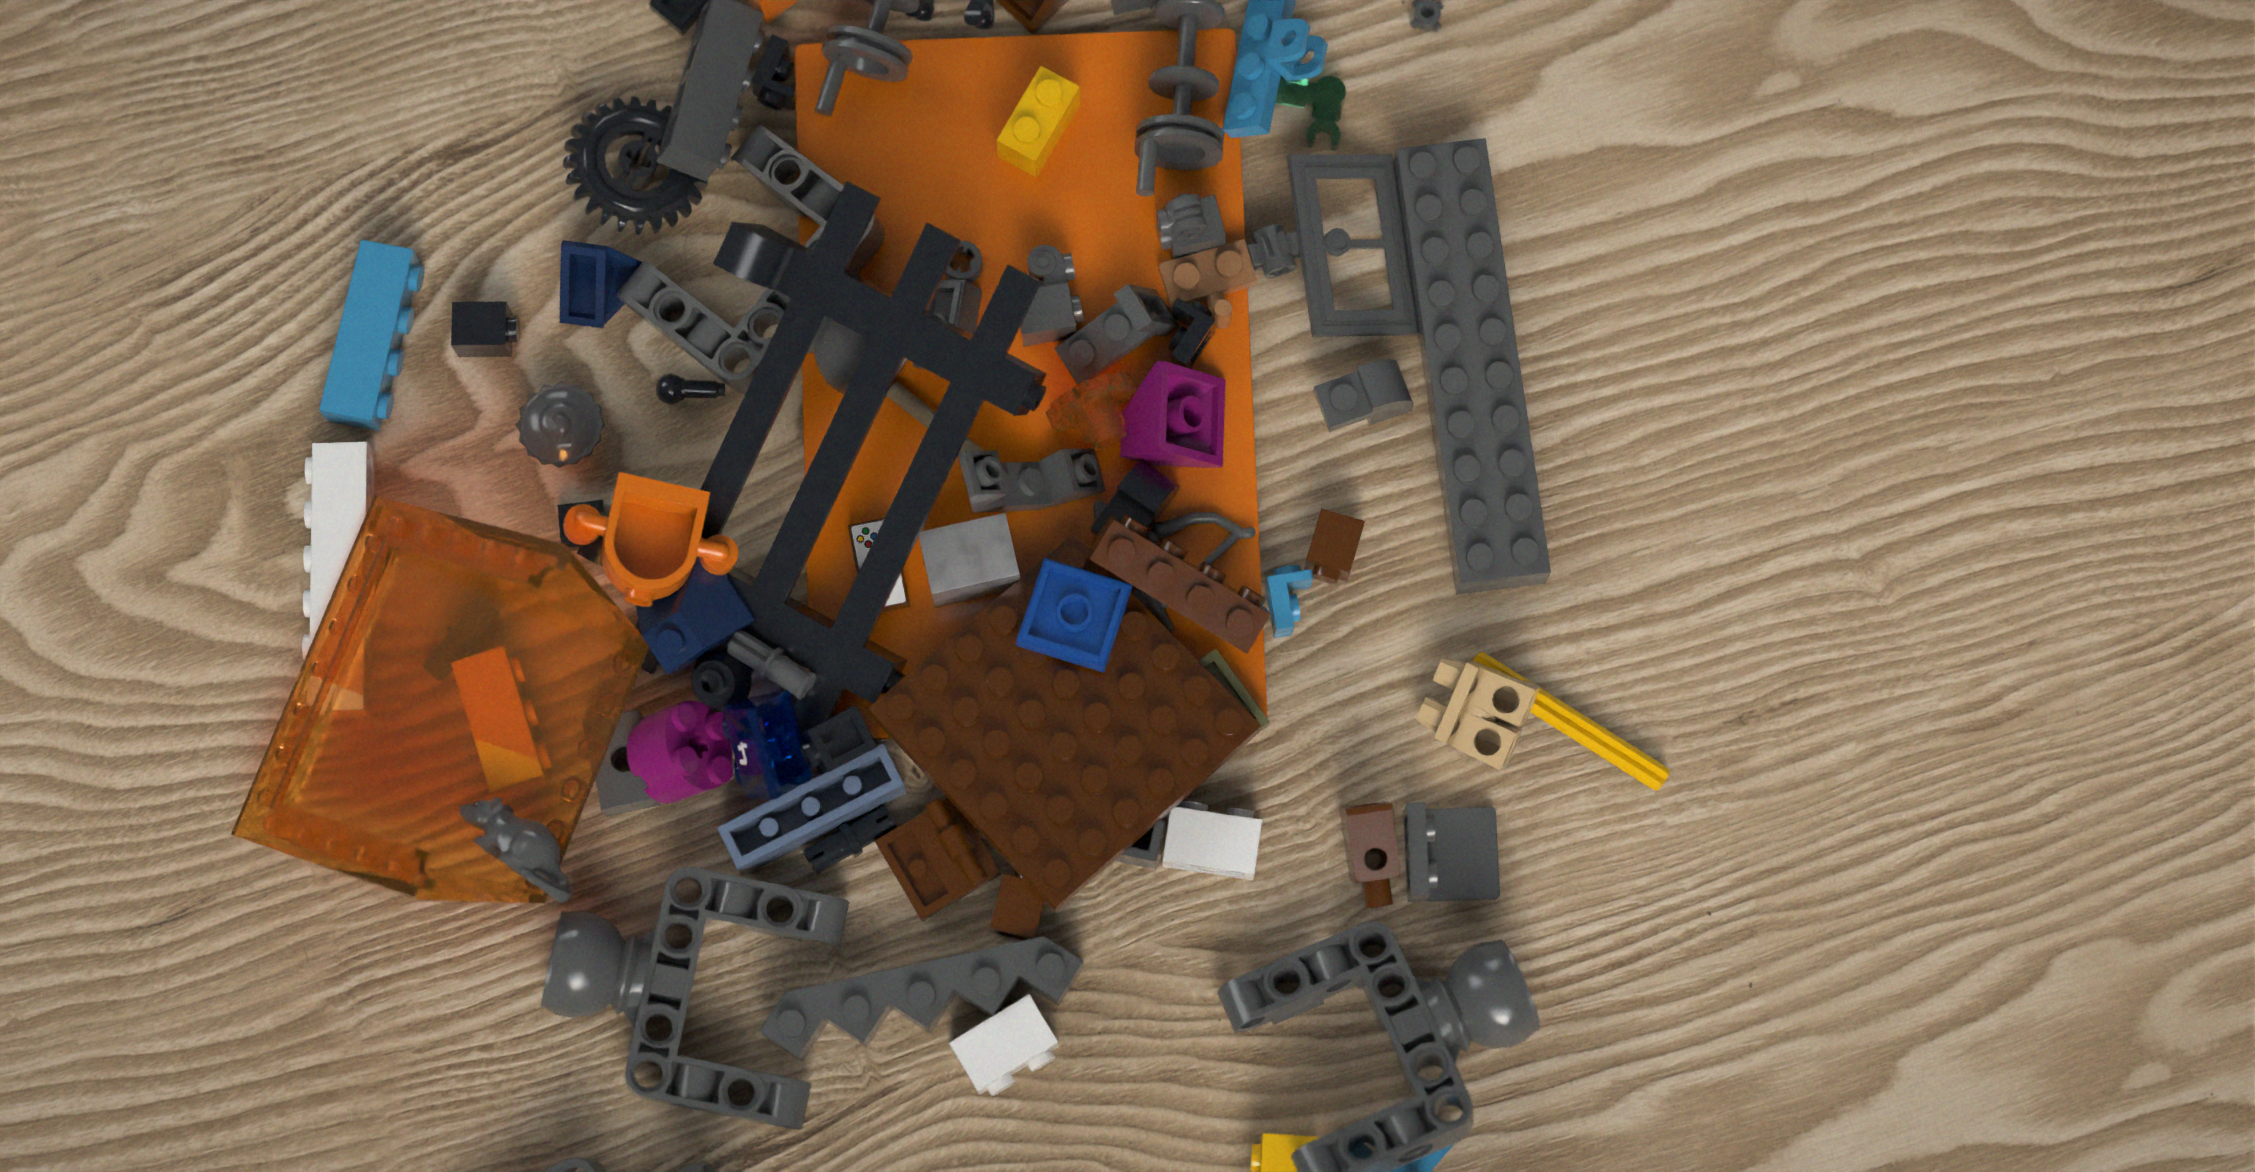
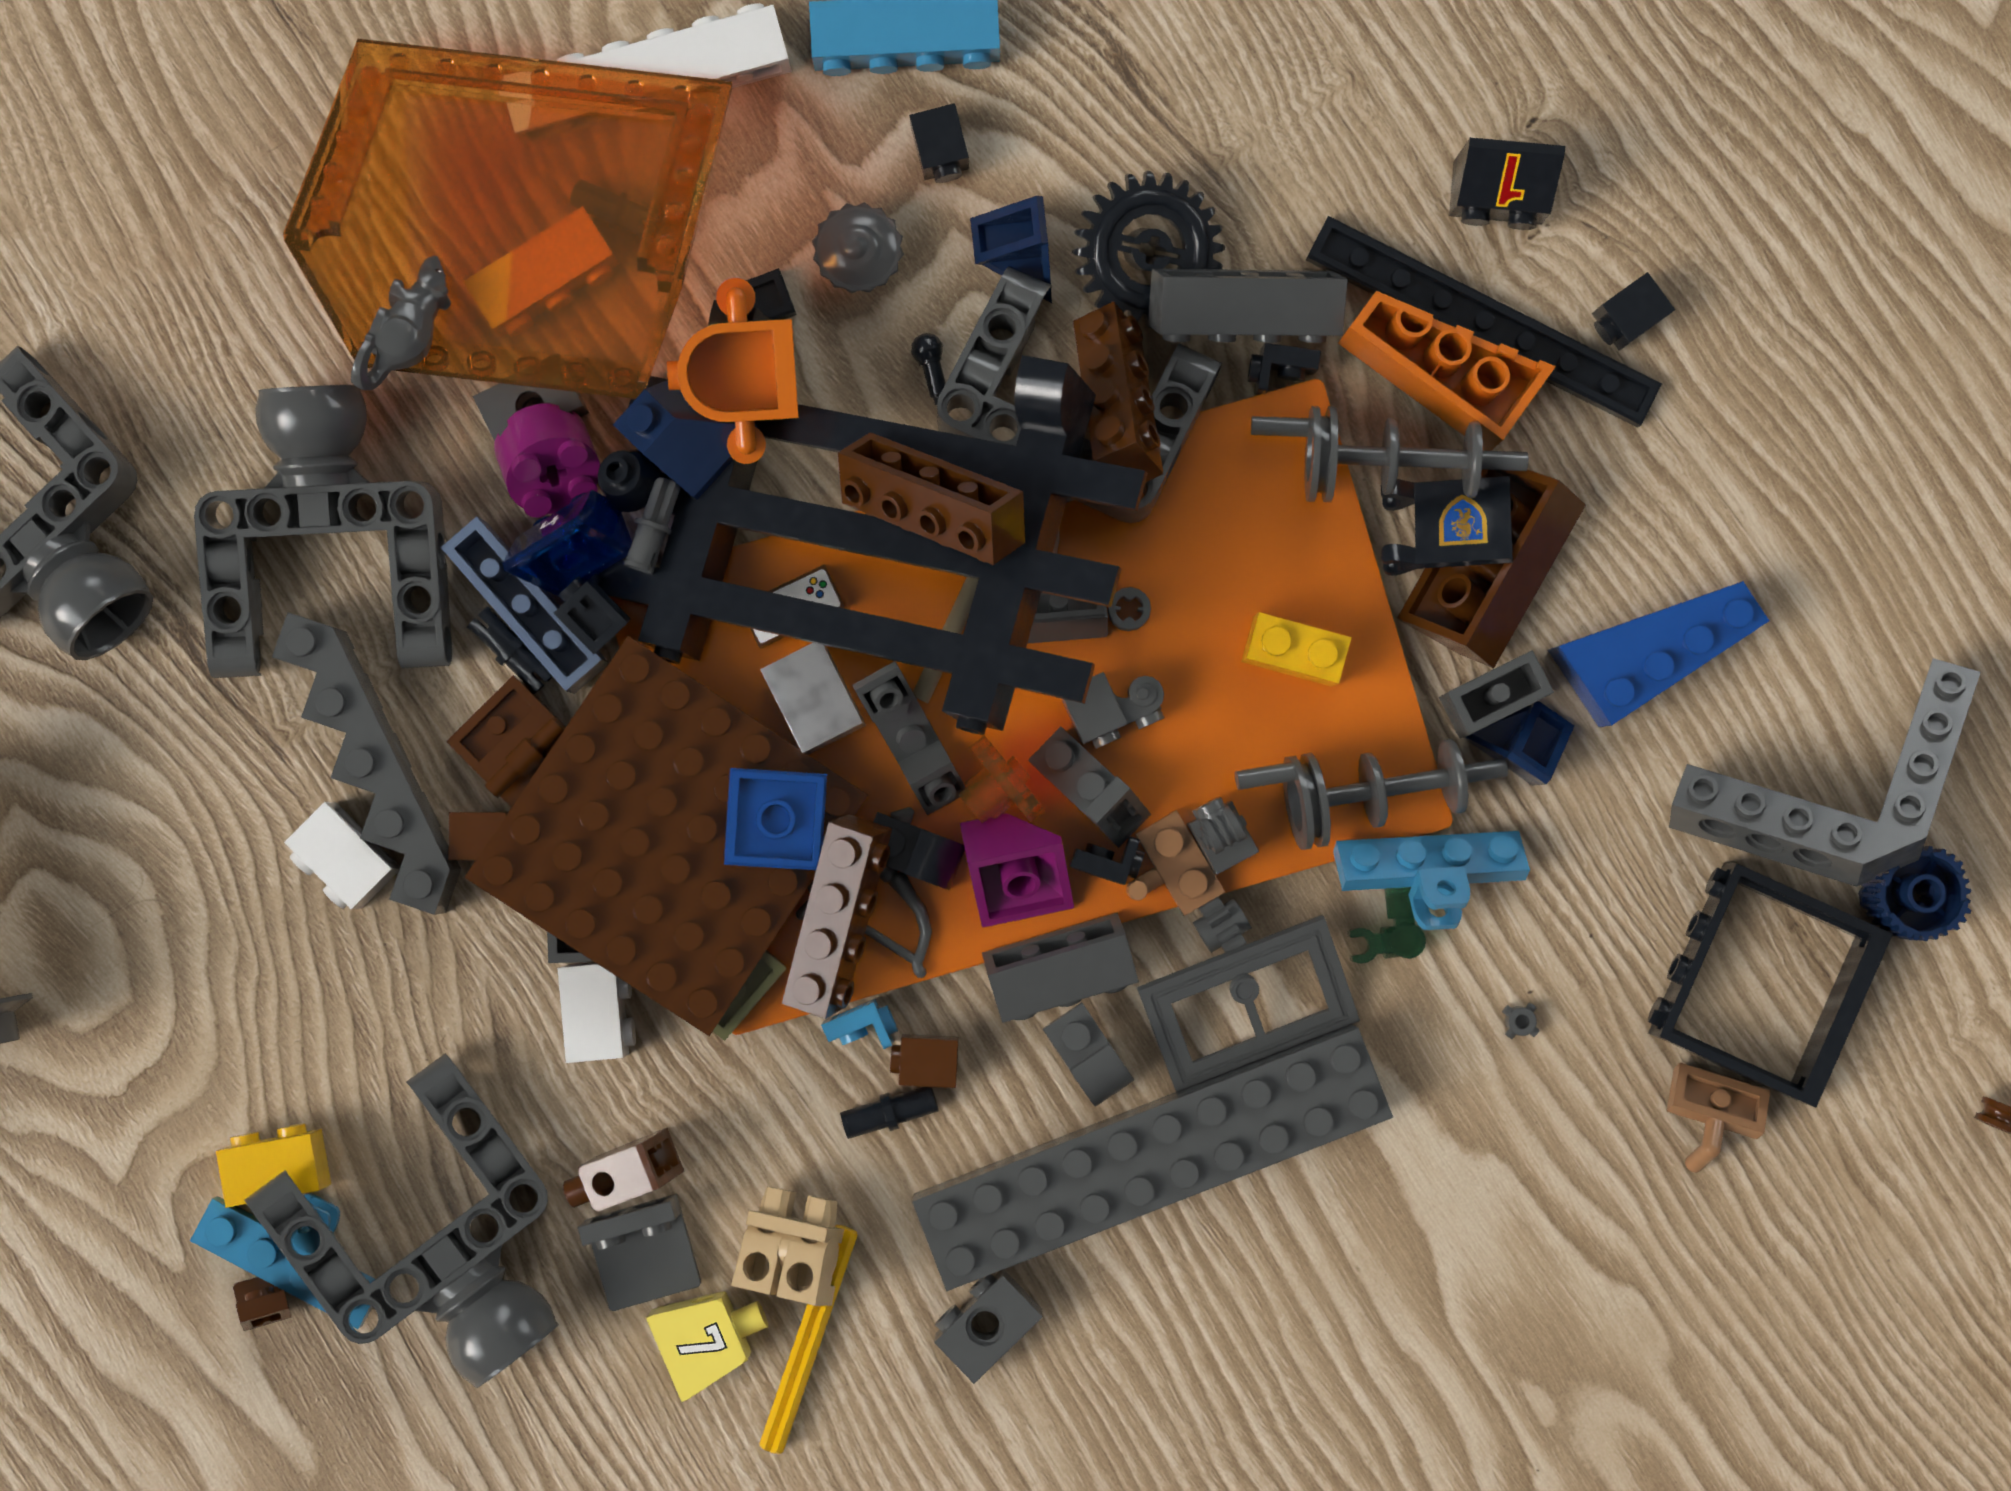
camera: 70 degrees right, 10 degrees up
(787, 210) = (1116, 371): none -> reddish brown brick
(818, 380) = (932, 498): none -> reddish brown brick
(1277, 403) = (1060, 968): none -> dark grey brick
(1373, 594) = (889, 1112): none -> black pin
(1546, 814) = (704, 1339): none -> light yellow torso
(1591, 524) = (978, 1351): none -> dark grey brick

